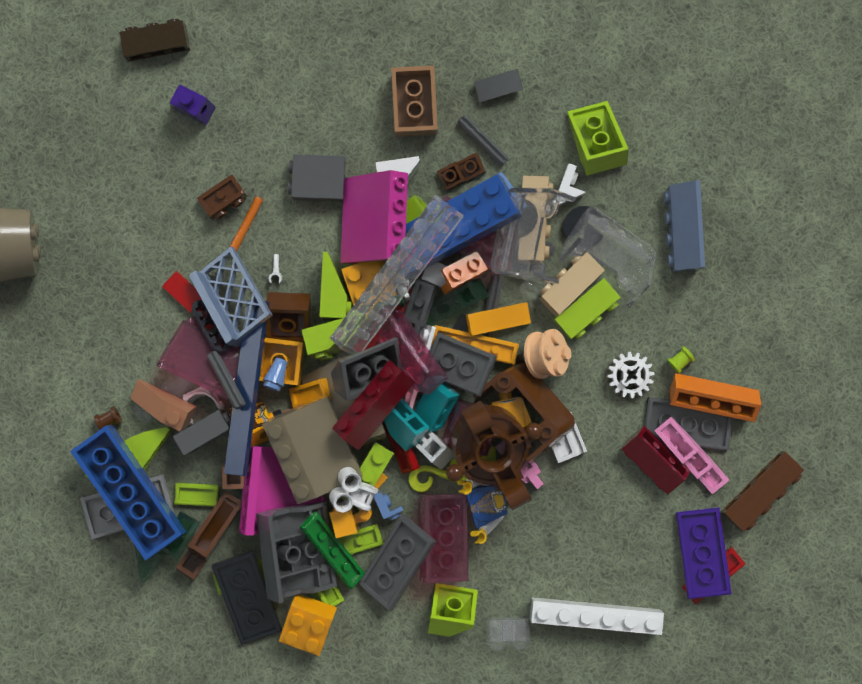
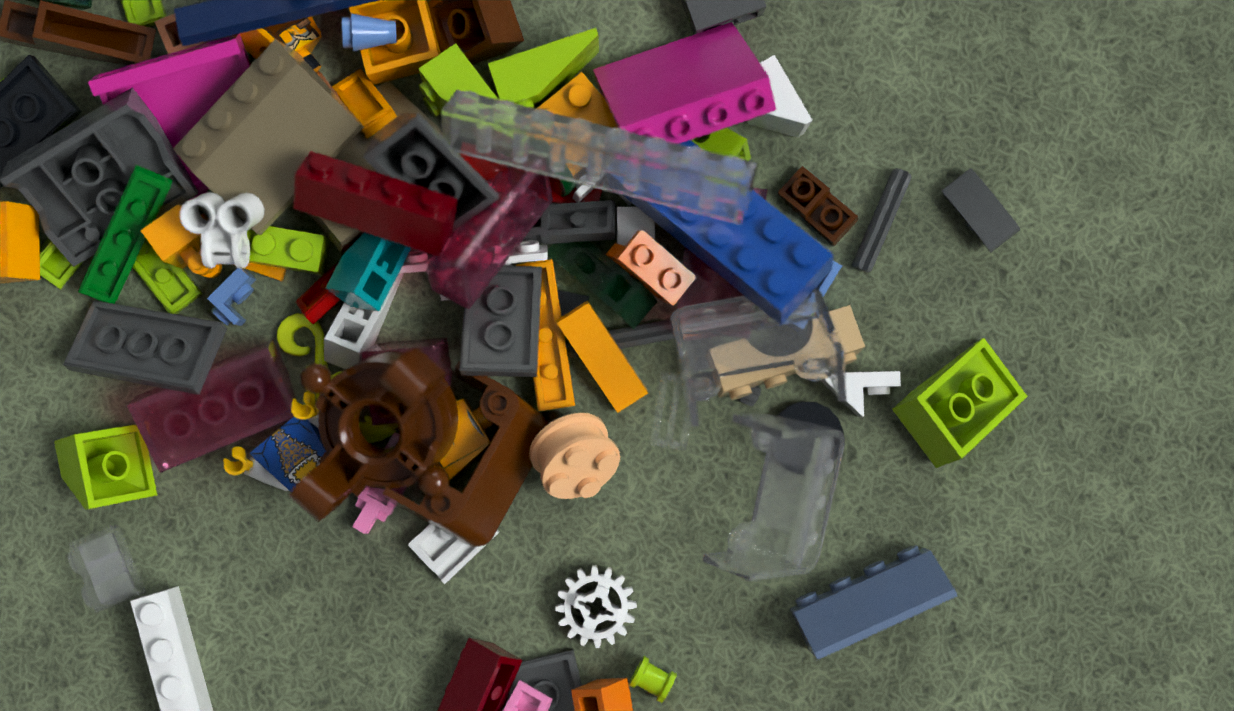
camera: 70 degrees right, 0 degrees up
(414, 101) = (900, 83): medium nougat brick -> none
(437, 406) = (419, 312): teal brick -> none
(571, 283) = (706, 451): tan brick -> none
(587, 309) = (674, 495): lime brick -> none

